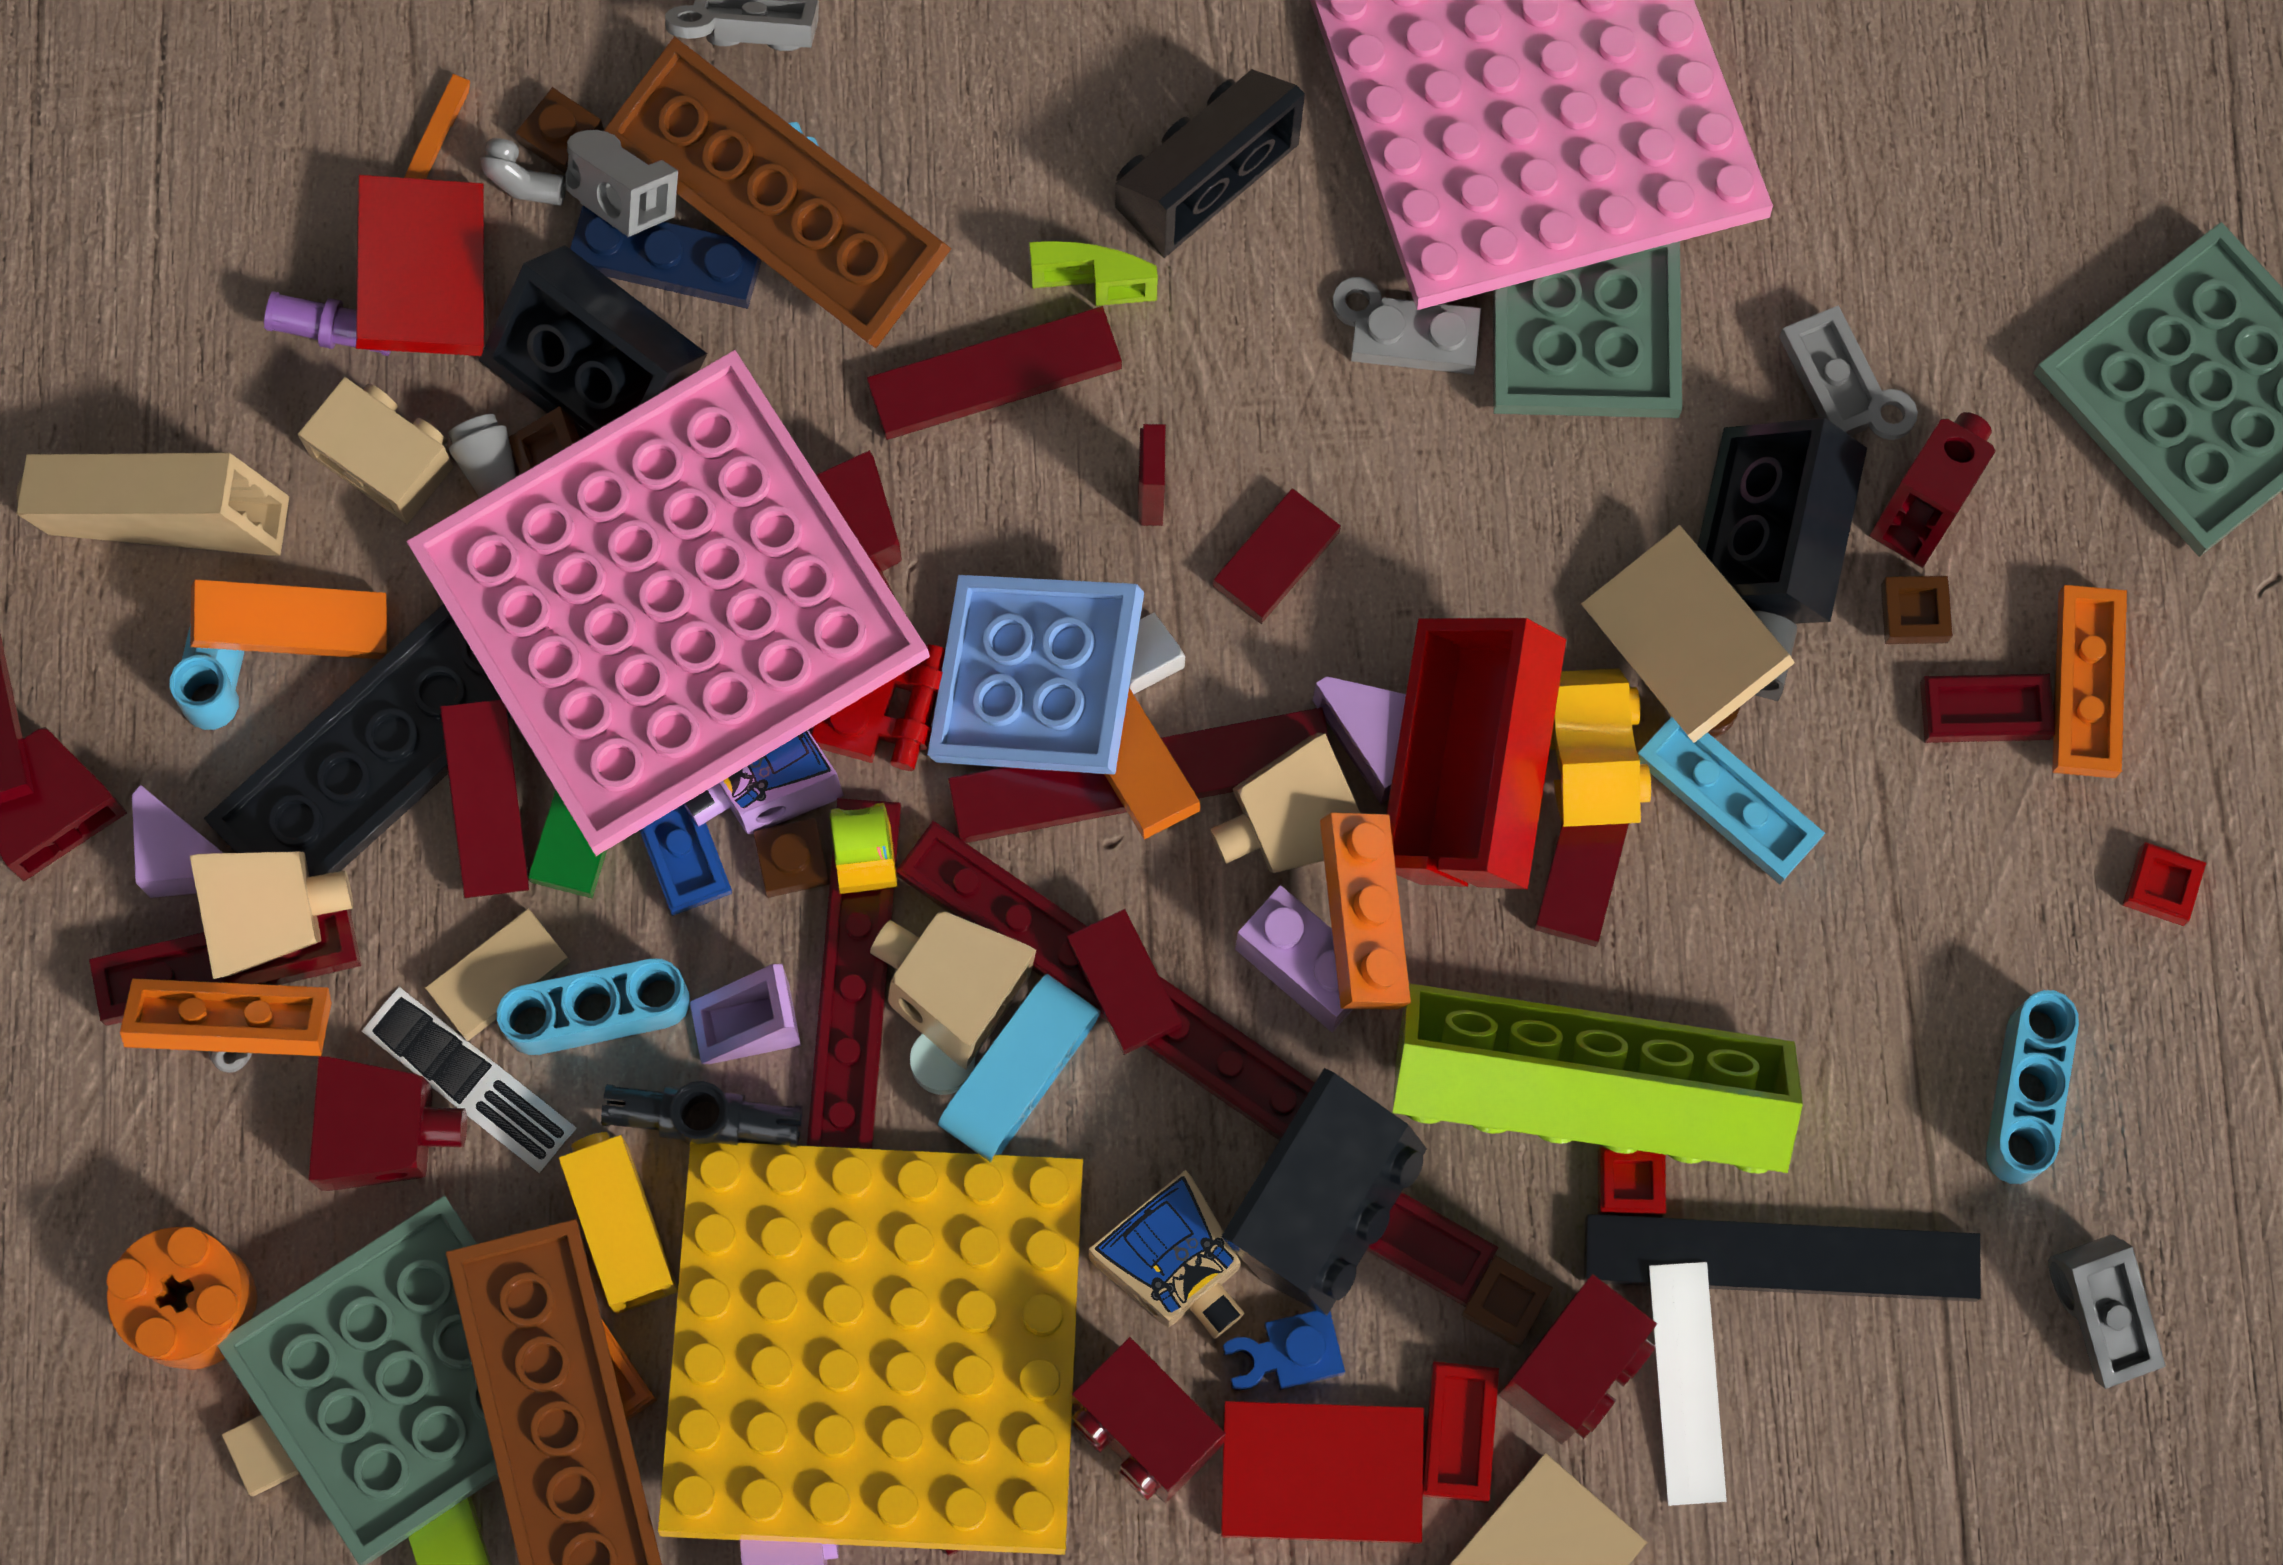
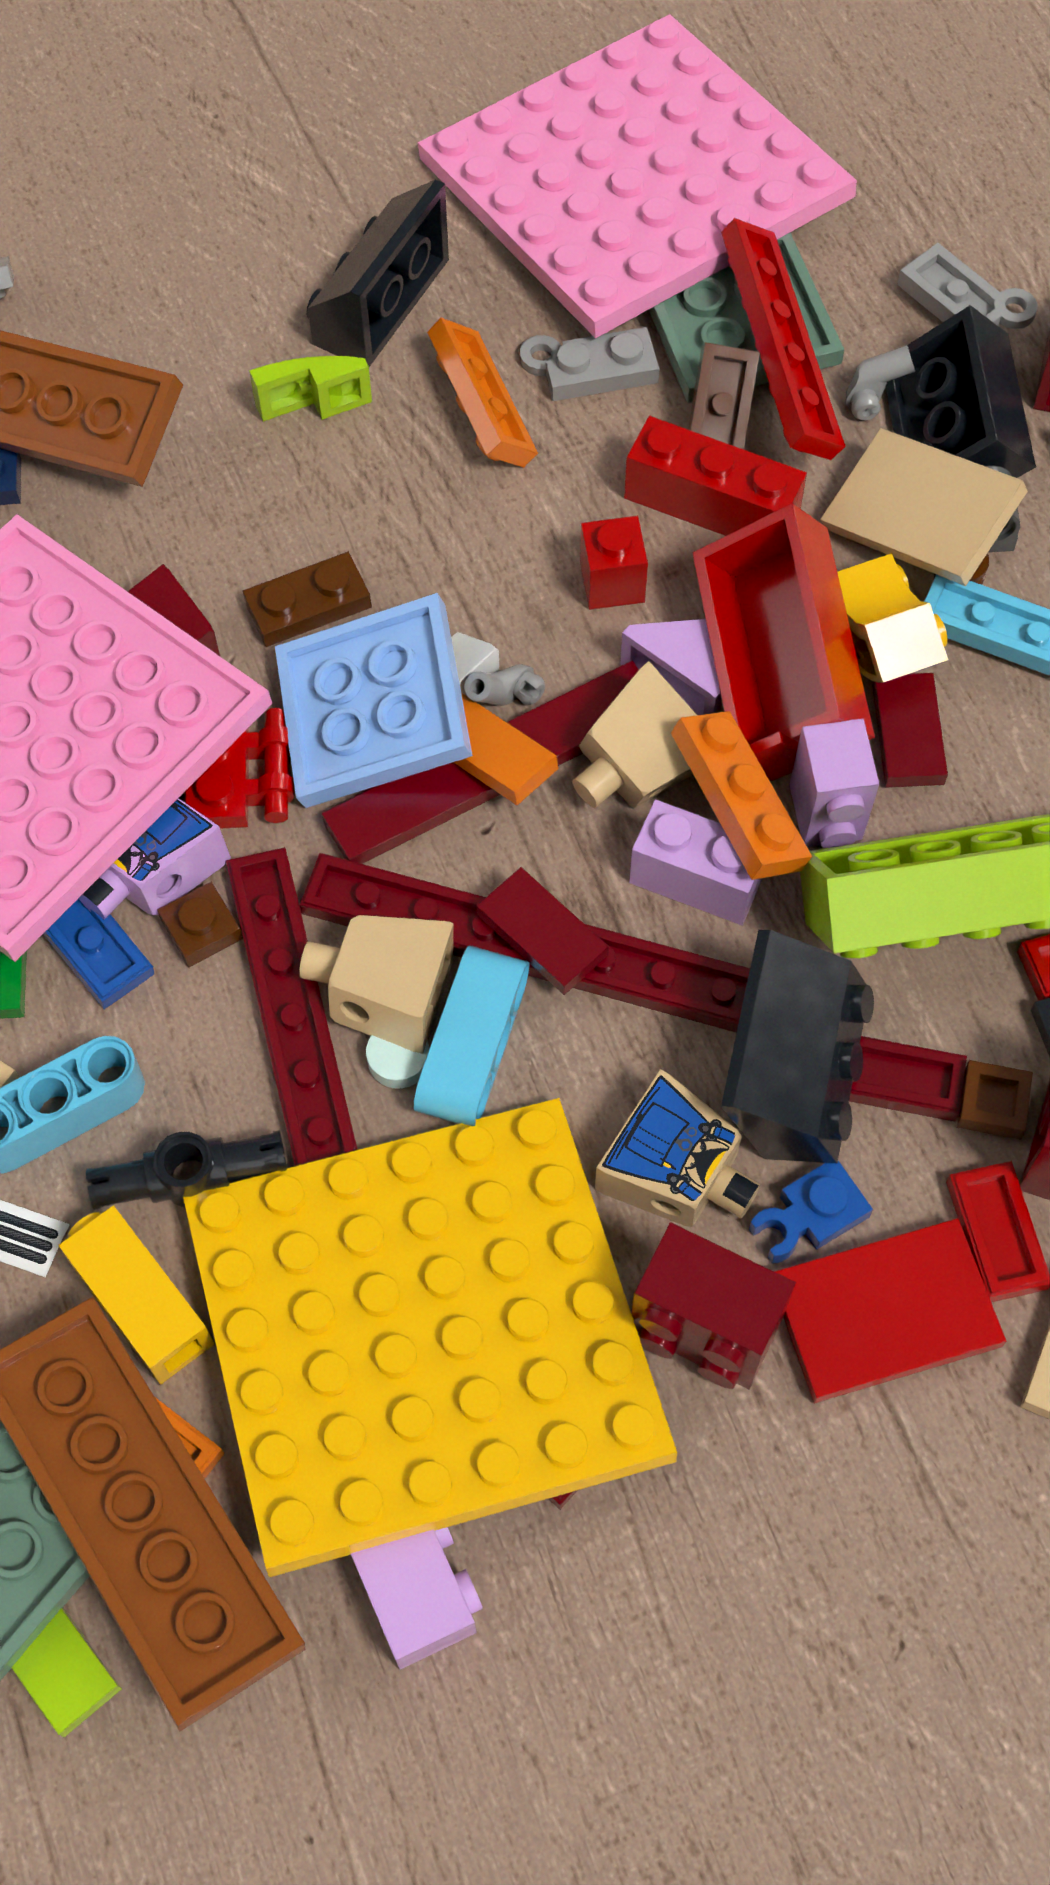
camera: 15 degrees left, 10 degrees down
(746, 1017) = (203, 1068): lavender slope -> none
(863, 849) = (263, 882): lime leg -> none
(994, 373) = (251, 489): dark red tile -> none
(1011, 523) = (307, 599): none -> reddish brown plate
(1151, 474) = (418, 512): dark red tile -> none
(1179, 693) = (505, 686): none -> light grey arm
(1273, 337) = (482, 393): none -> orange plate
(1276, 555) = (545, 559): dark red tile -> none
(1340, 590) = (613, 562): none -> red brick
(1468, 925) = (833, 783): none -> lavender brick
(1479, 531) = (706, 479): none -> red brick
(1521, 438) = (724, 393): none -> reddish brown plate
(1612, 384) = (782, 340): none -> red plate
(1699, 453) = (871, 378): none -> light grey arm

